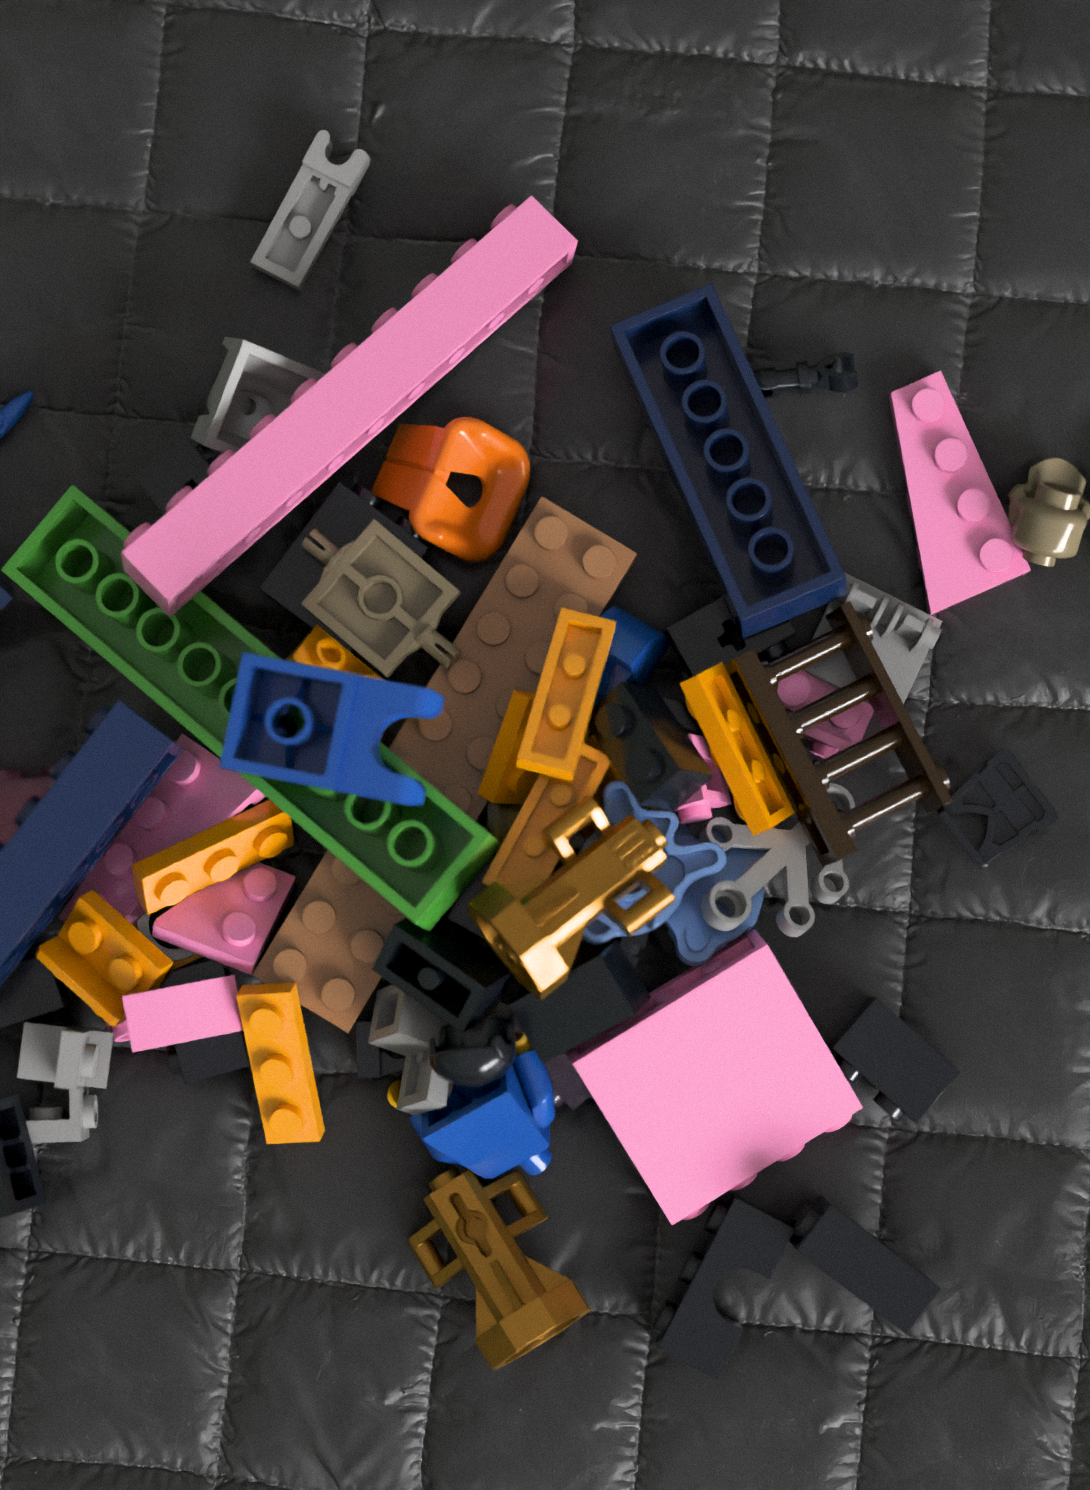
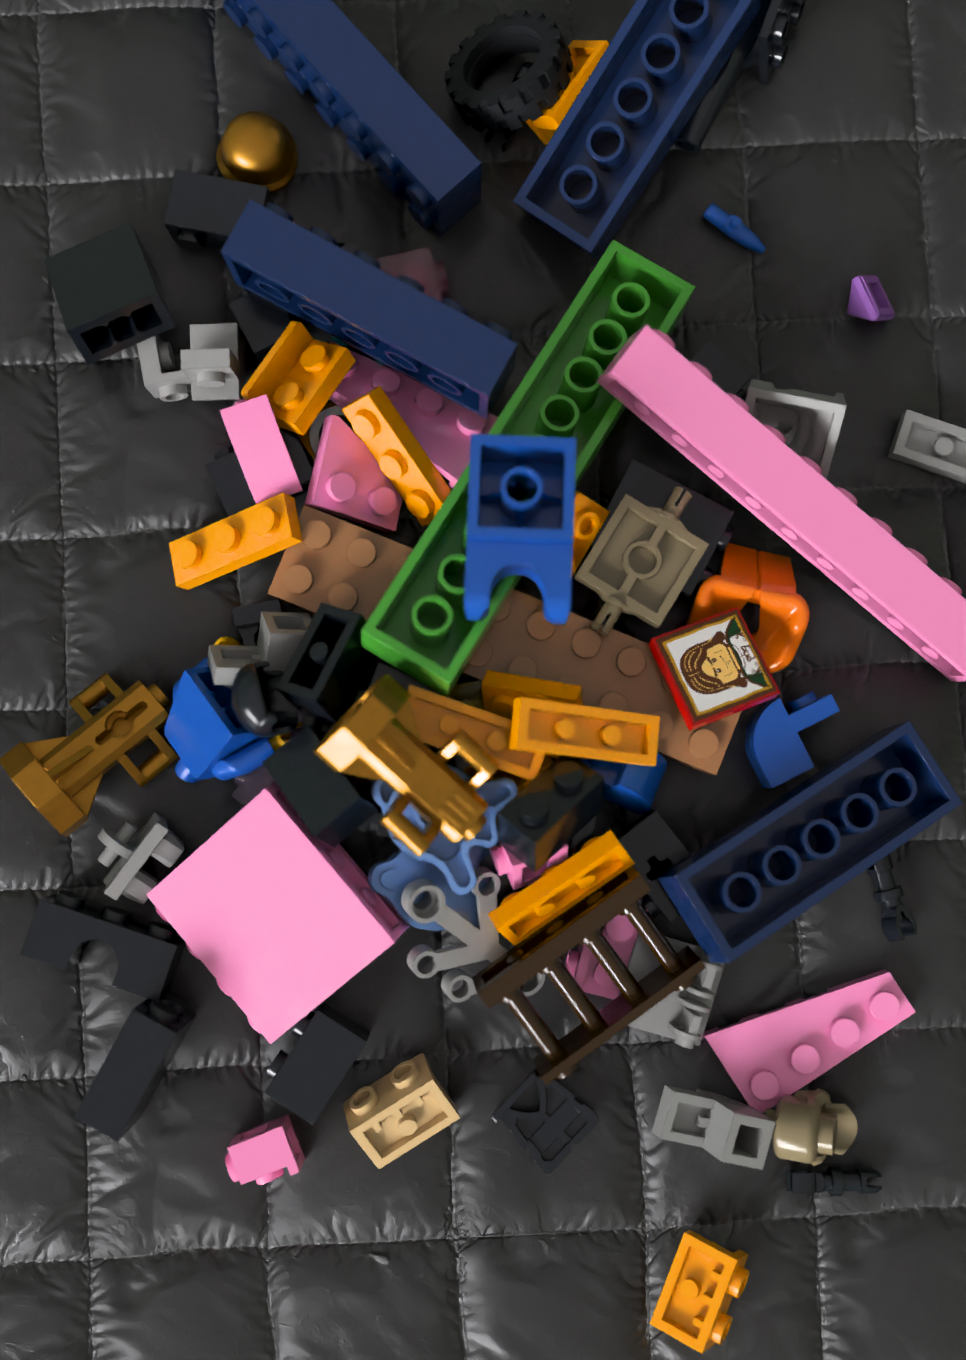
camera: 80 degrees right, 0 degrees up
(113, 280) = (869, 299): none -> medium lavender slope
(516, 537) = (713, 668): none -> tile
(609, 479) = (773, 738): none -> blue brick
(617, 1232) = (126, 875): none -> light grey hips
(962, 974) = (399, 1111): none -> tan bracket
(986, 1136) = (264, 1152): none -> bright pink brick
(1029, 620) = (715, 1123): none -> light grey brick

